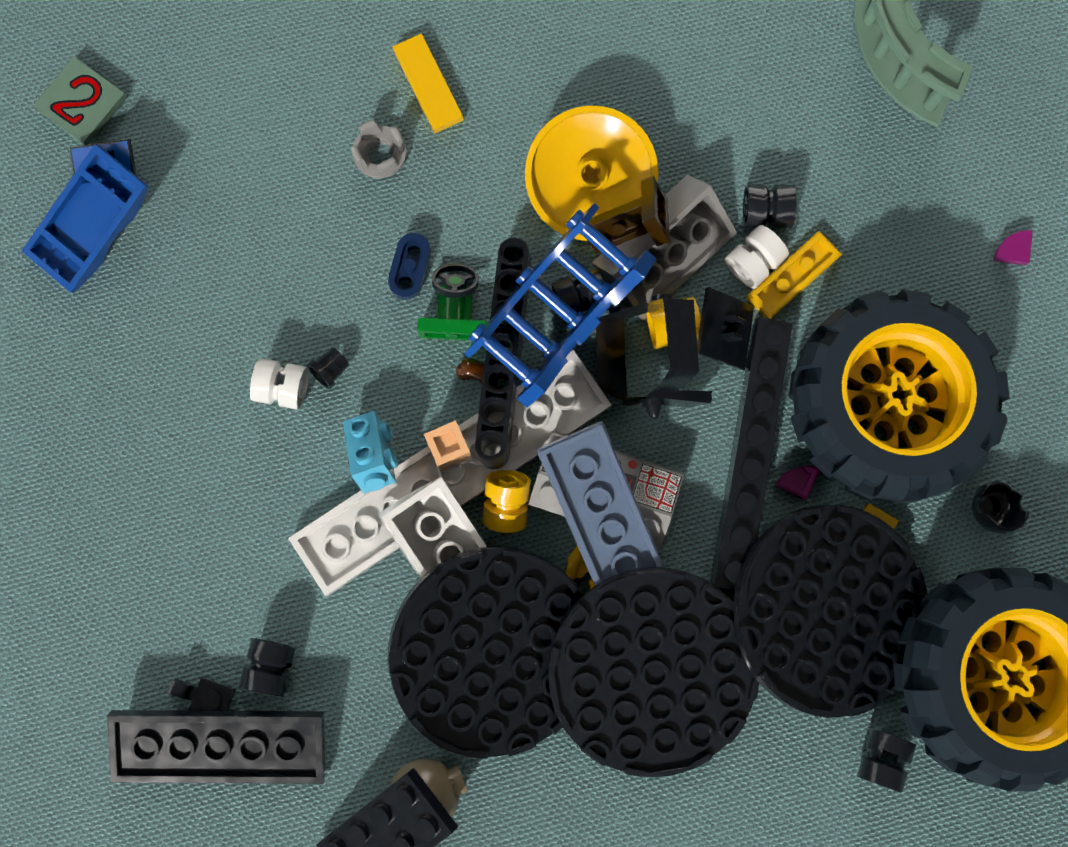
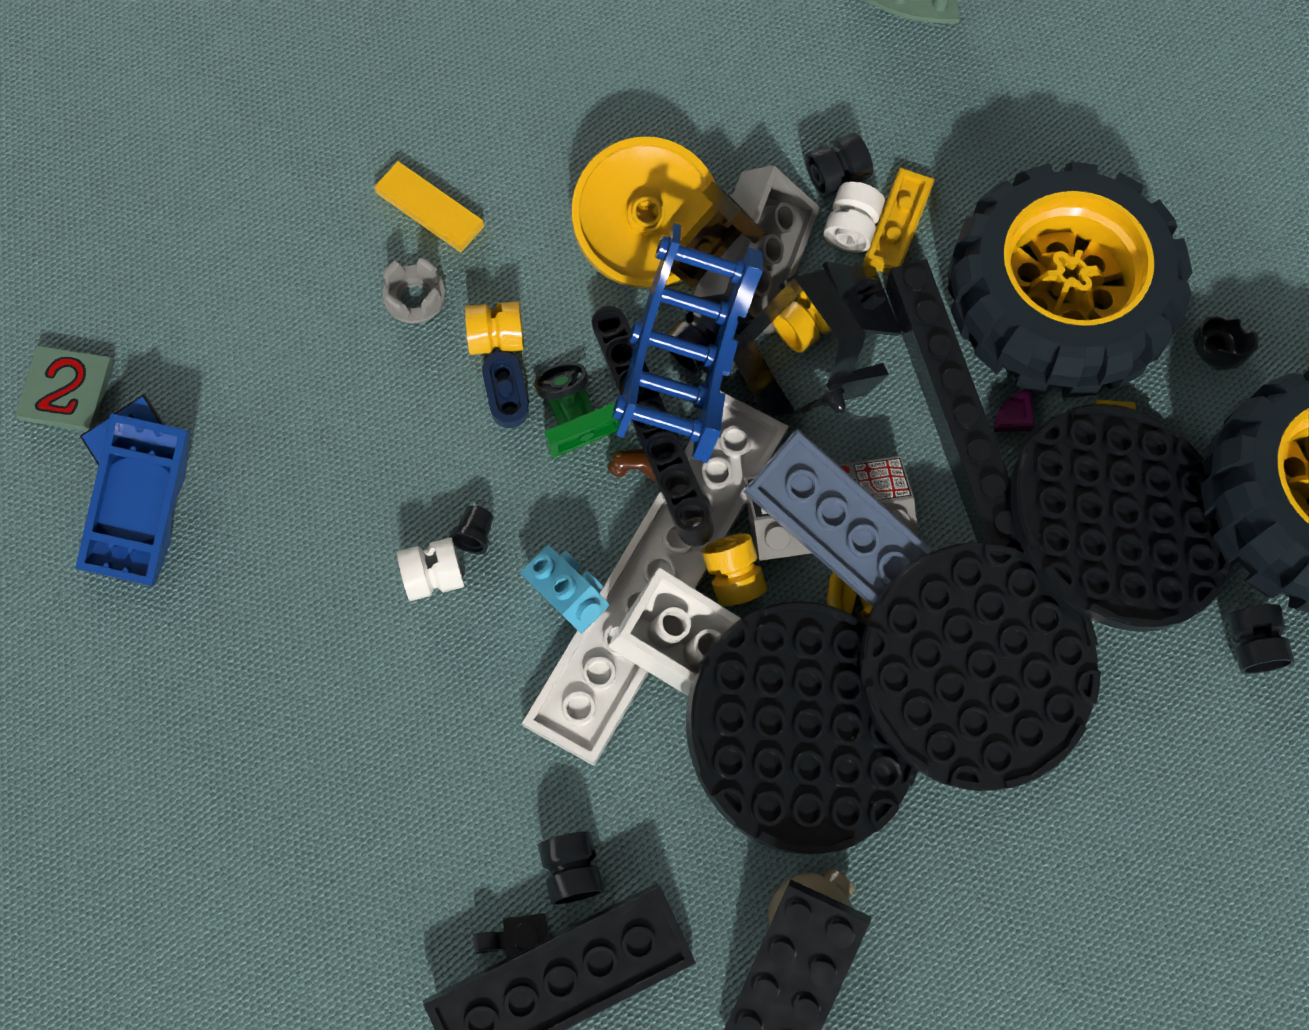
camera: 25 degrees left, 10 degrees down
(424, 212) = (494, 328): none -> yellow wheel
(447, 446) = (645, 541): light nougat panel -> none
(1015, 249) = (1097, 99): magenta tile -> none

